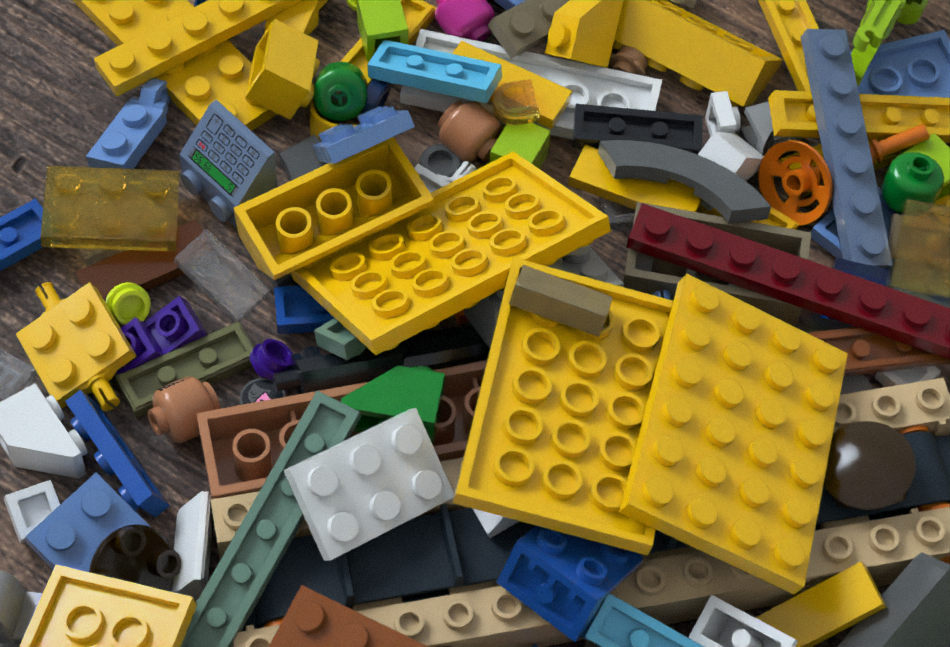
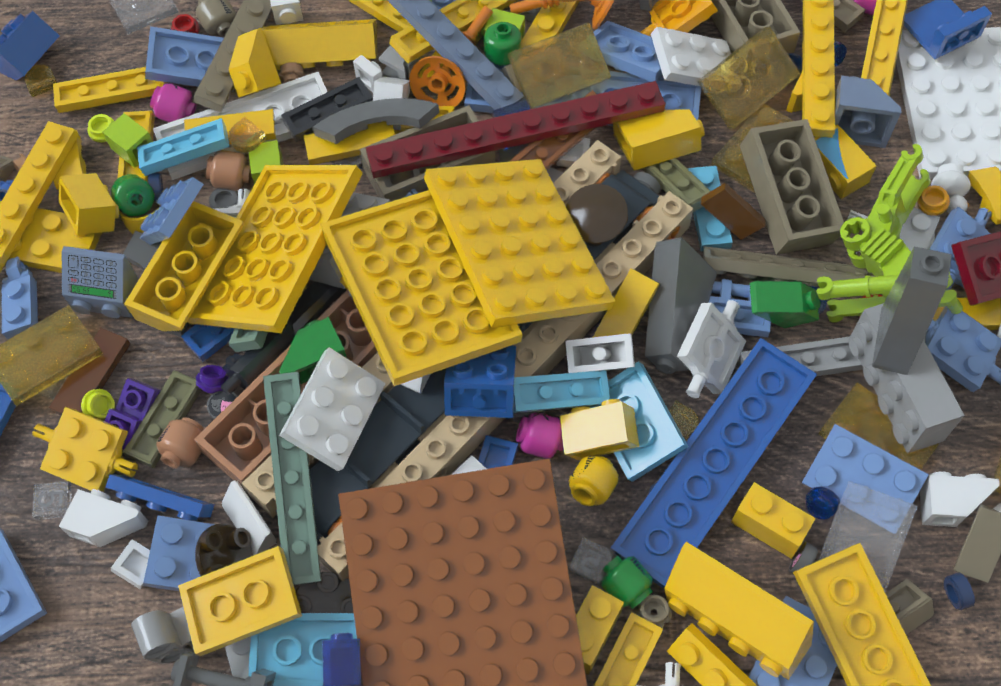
camera: 30 degrees left, 5 degrees up
(221, 276) = (143, 350): clear plate -> none
(561, 300) = (368, 230): dark tan slope -> none

